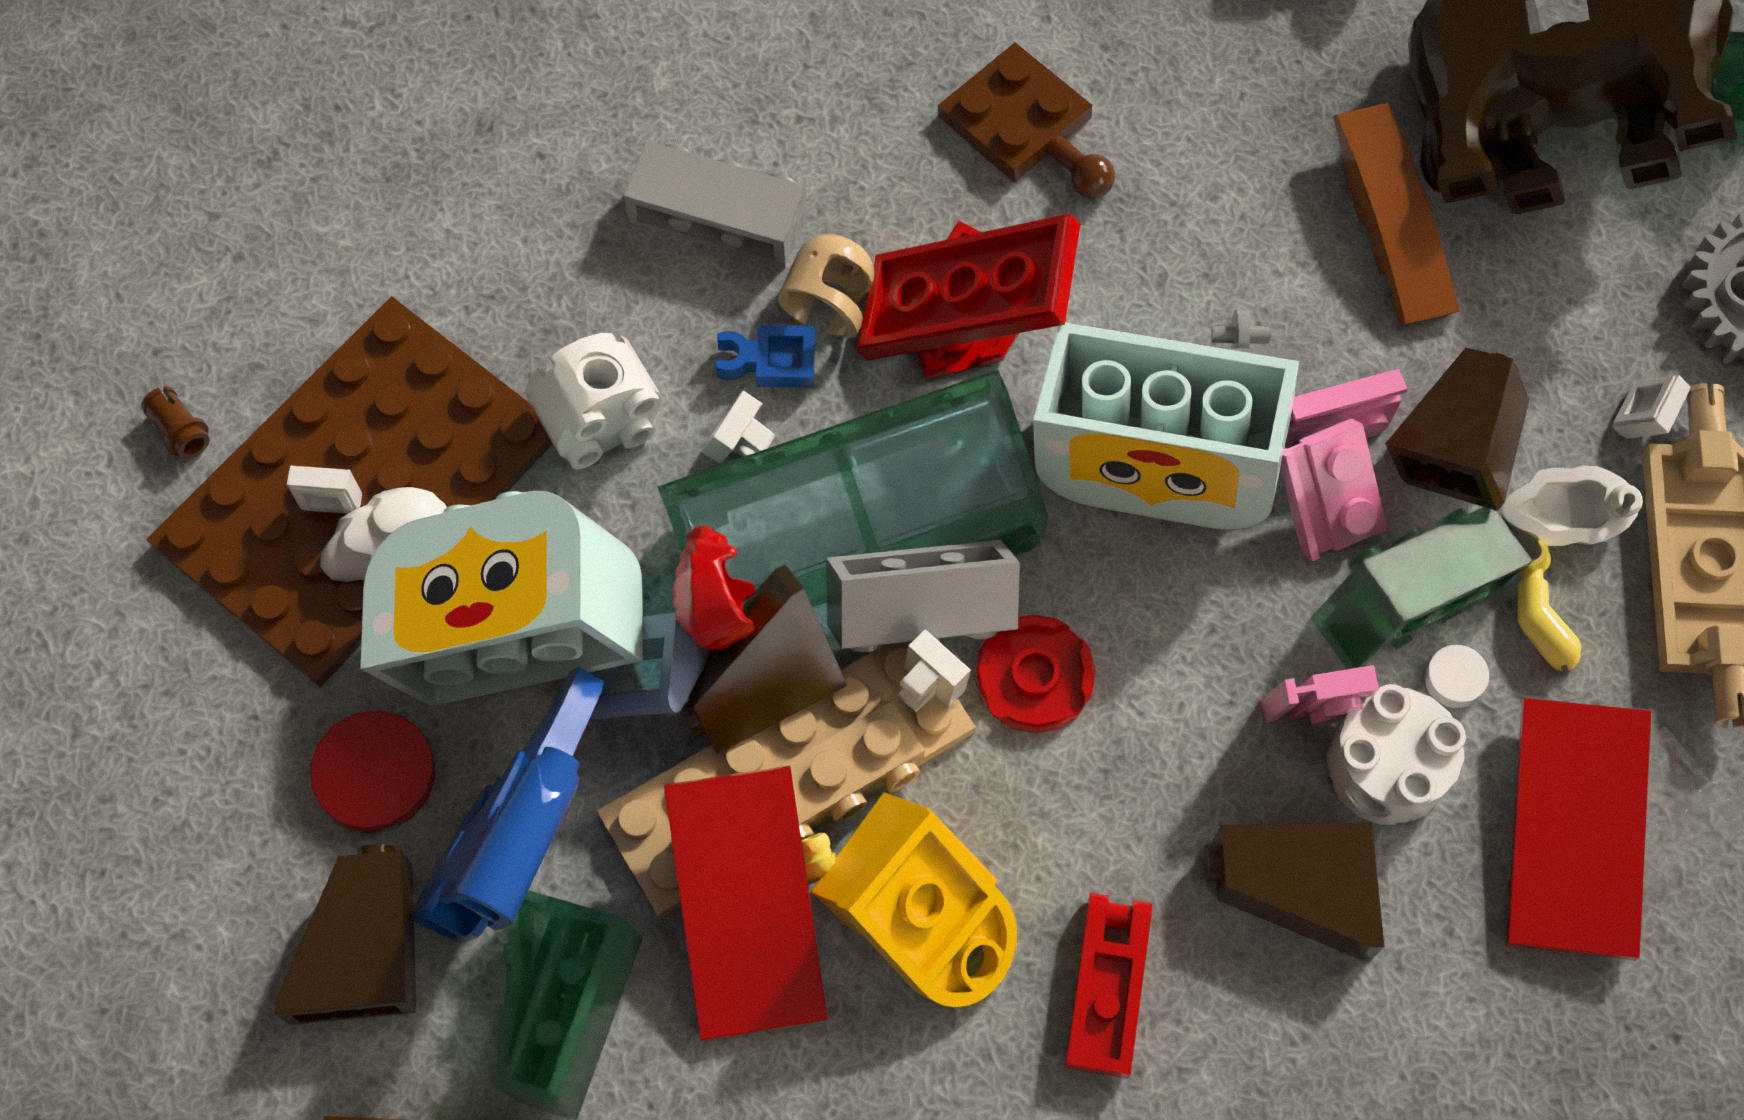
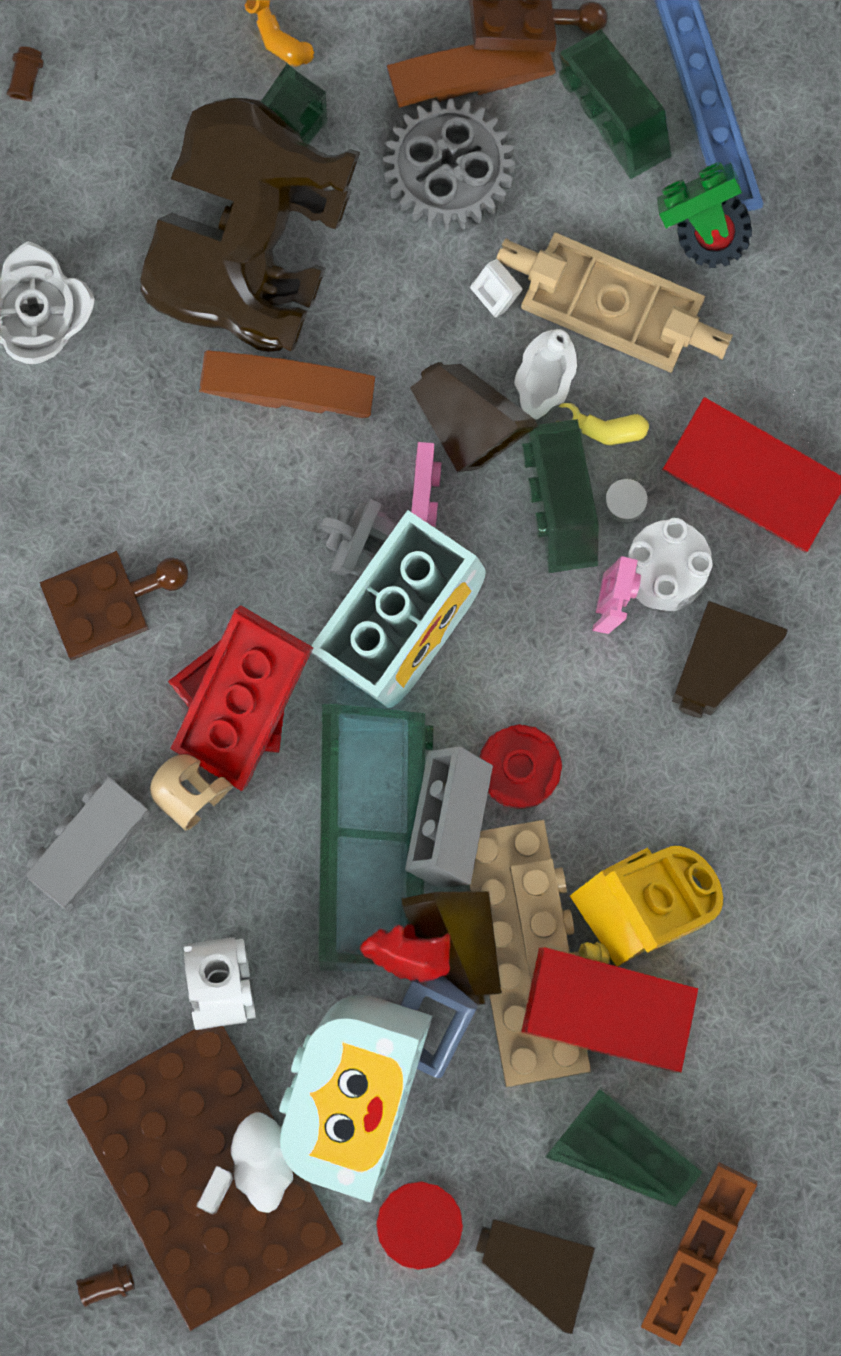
camera: 70 degrees left, 10 degrees up
(511, 824) = (511, 1136): blue rock -> none
(739, 431) = (271, 895): white tile -> none
(779, 356) = (224, 846): blue plate -> none
(932, 673) = (506, 832): white tile -> none
(1108, 988) = (742, 805): red plate -> none
(1332, 489) = (477, 520): bright pink plate -> none

